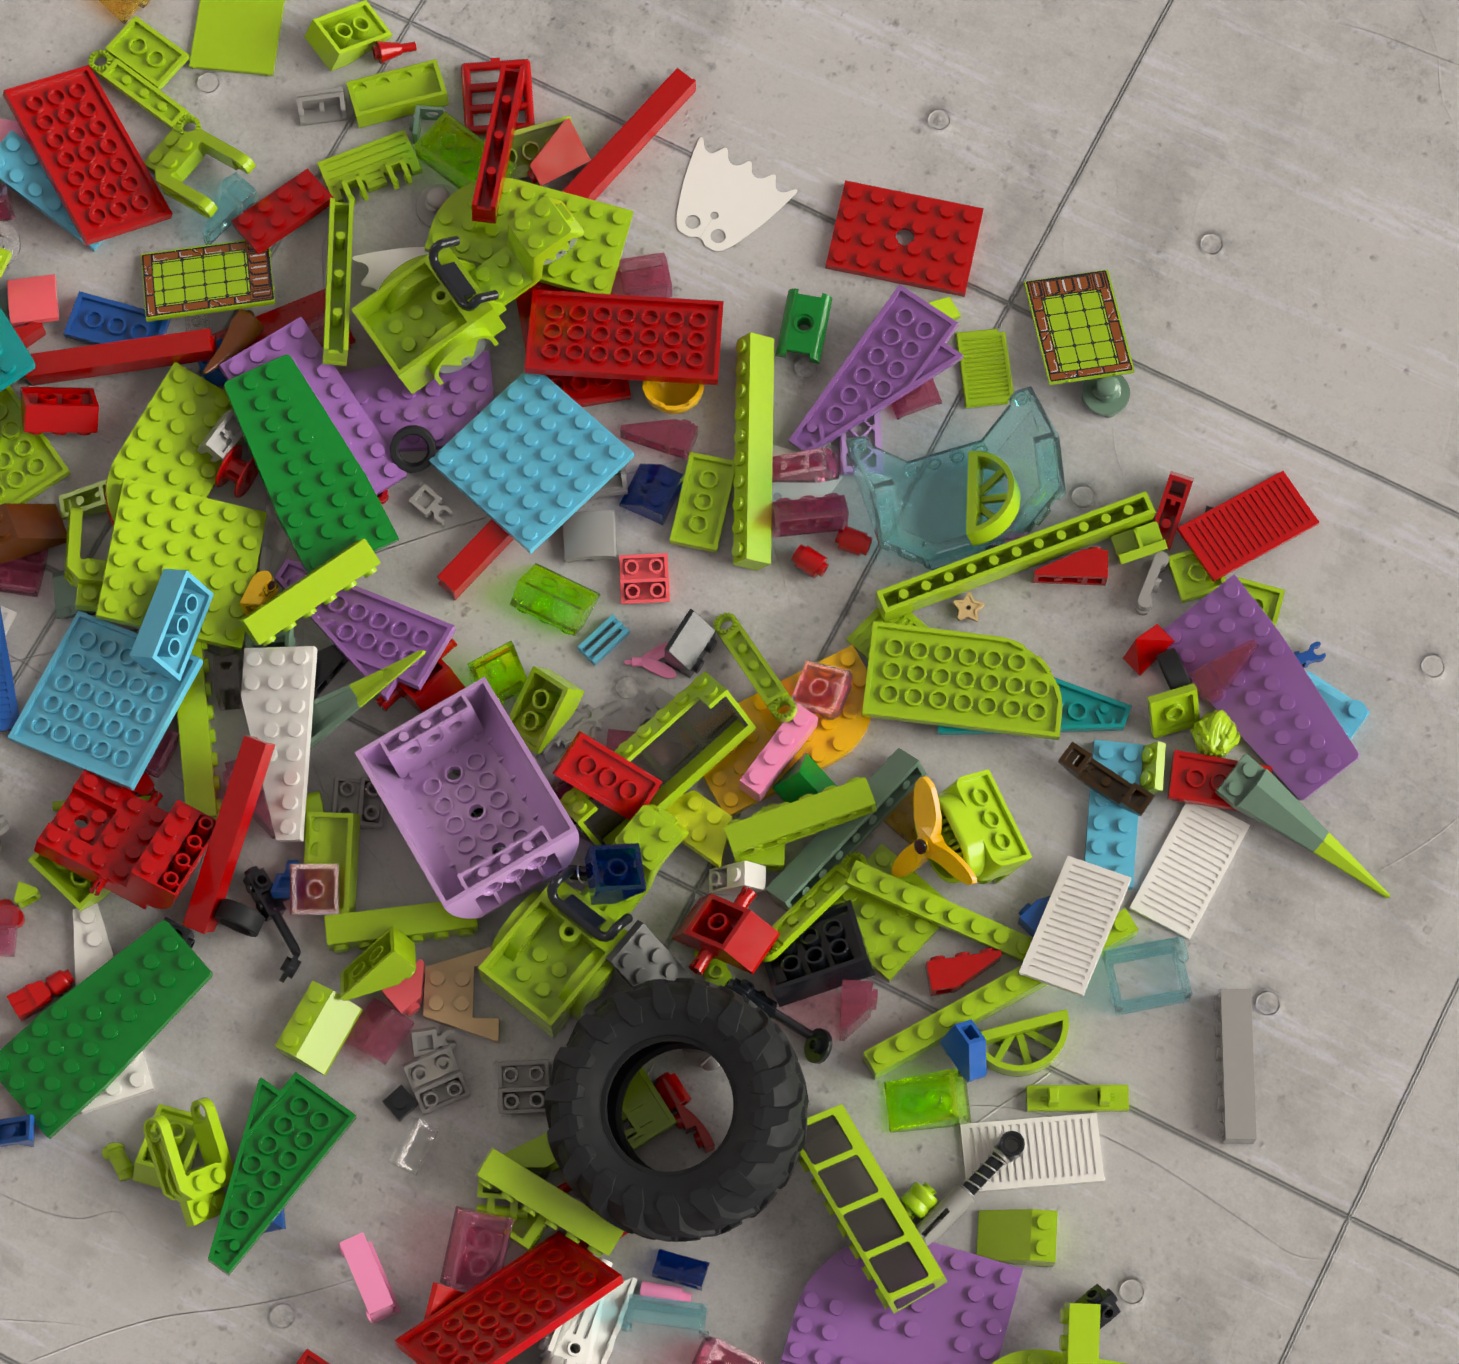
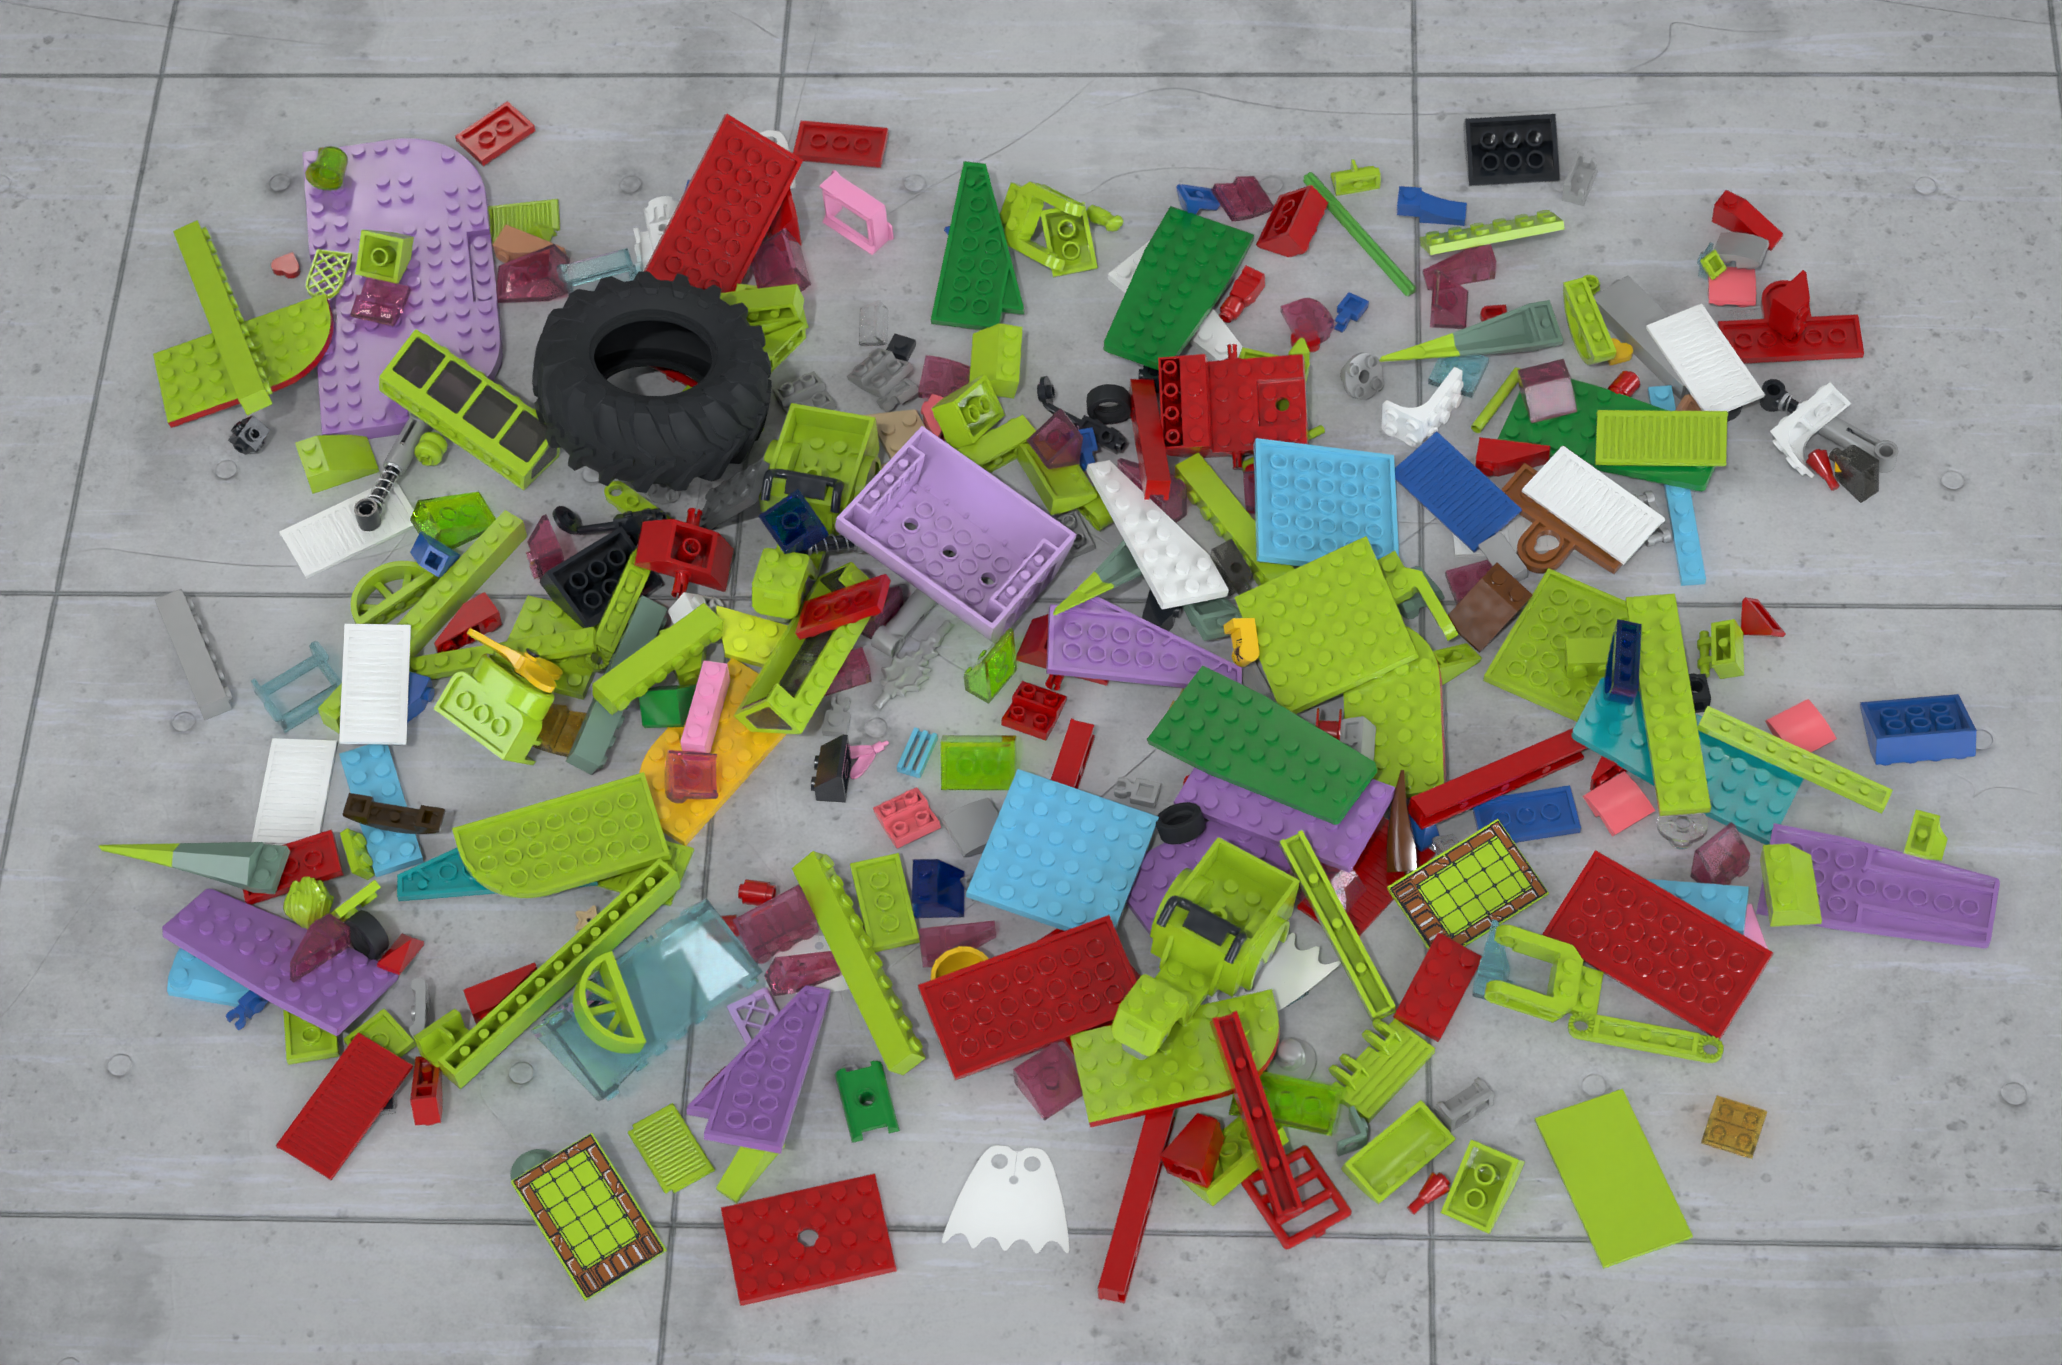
camera: 160 degrees right, 15 degrees down
(59, 410) = (1527, 715): red slope -> none
(147, 52) = (1670, 1078): lime plate -> none
(172, 624) = (1297, 559): medium azure slope -> none
(309, 592) = (1194, 646): lime brick -> none
(480, 630) = (1033, 710): none -> red slope
(544, 707) = (939, 666): lime slope -> none
(755, 667) = (761, 771): lime plate -> none
(1077, 1098) = (325, 580): lime hinge -> none

